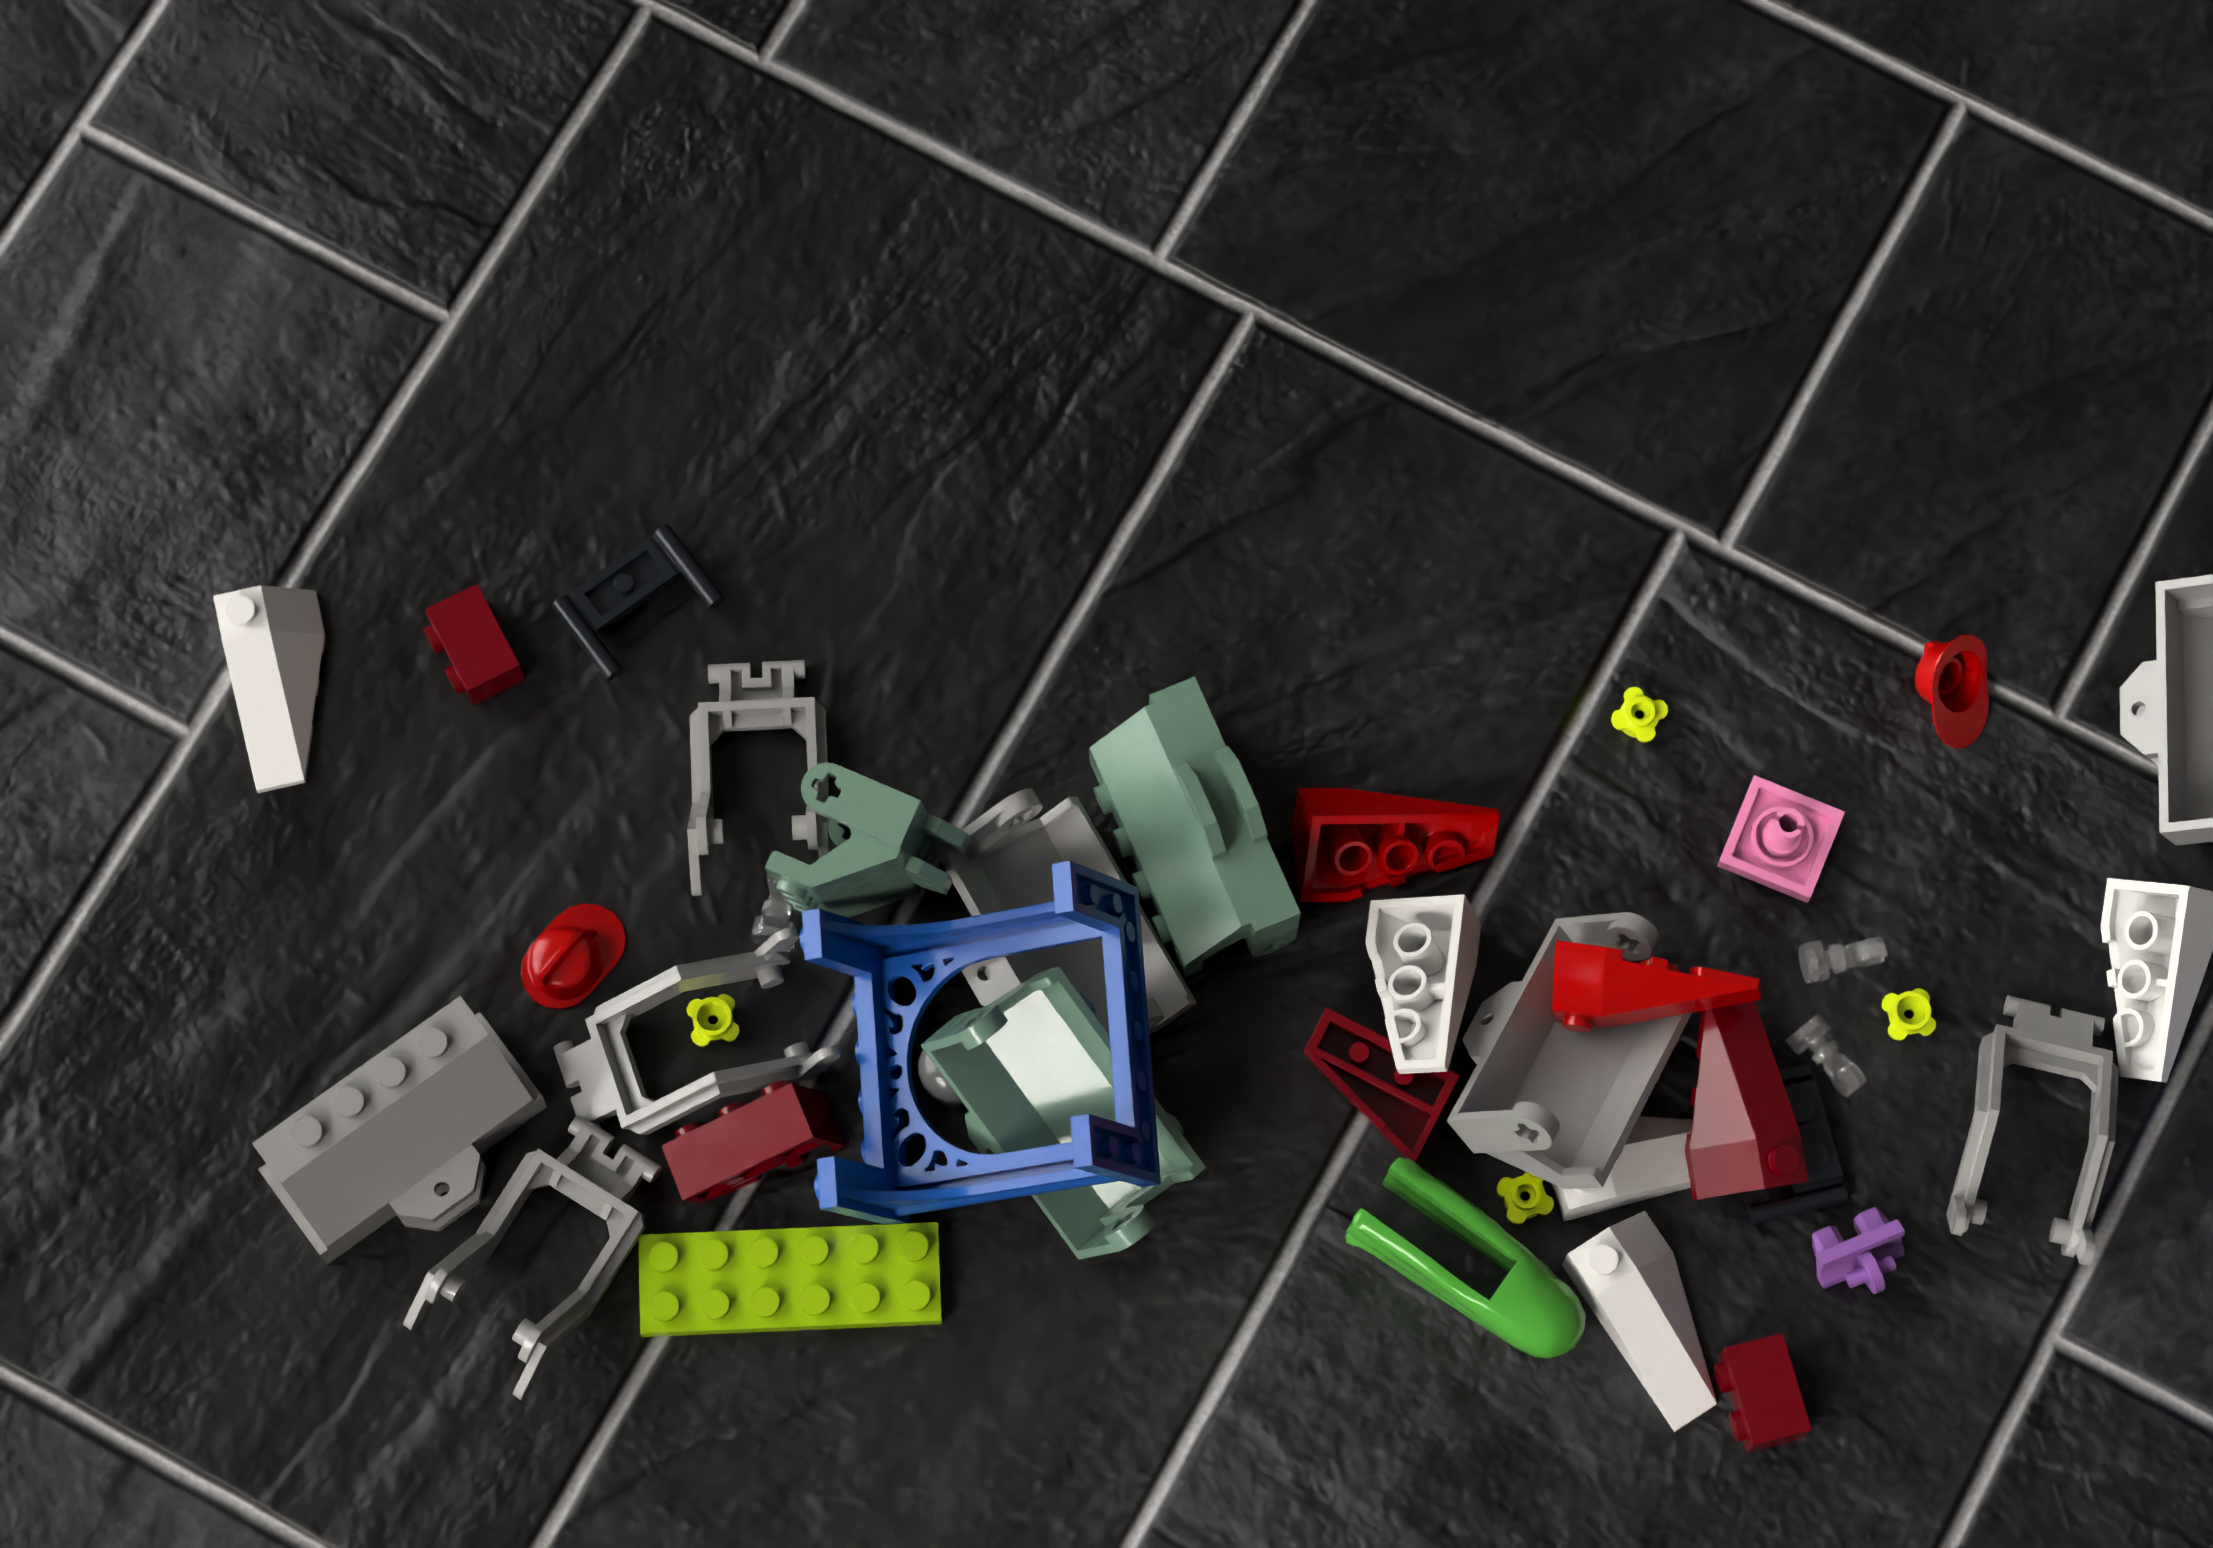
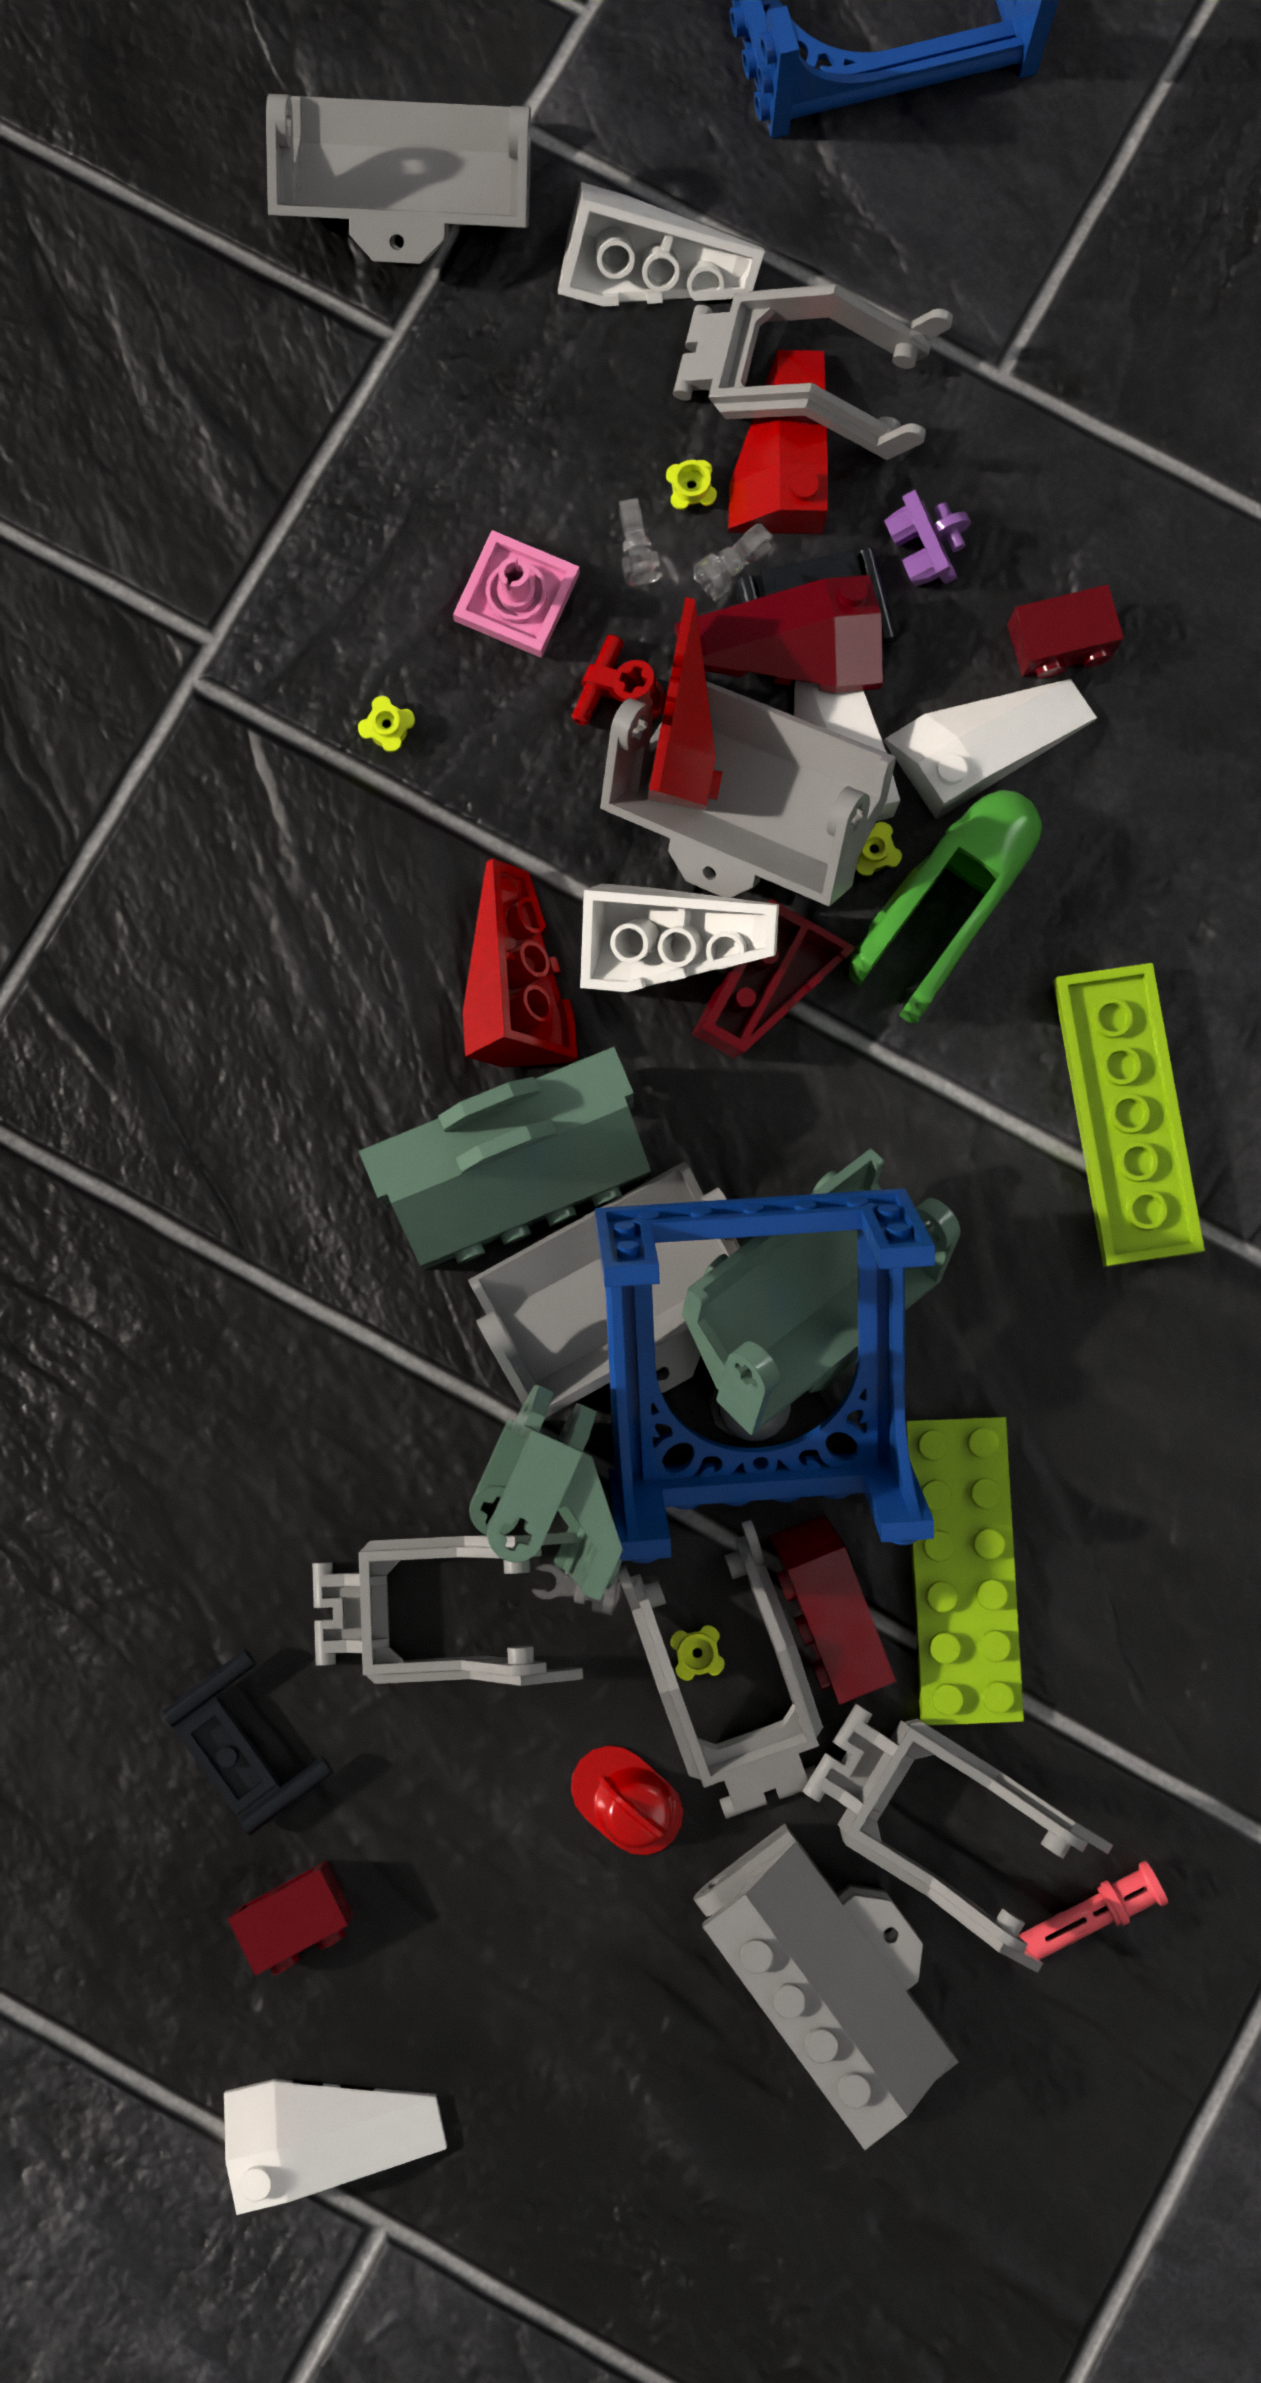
camera: 90 degrees left, 10 degrees up
(458, 1420) = (1109, 1896): none -> coral pin
(1251, 1450) = (1128, 1115): none -> lime plate
(1686, 944) = (631, 680): none -> red piece
(1930, 1108) = (783, 461): none -> red wedge
(1955, 684) = (362, 421): red piece -> none

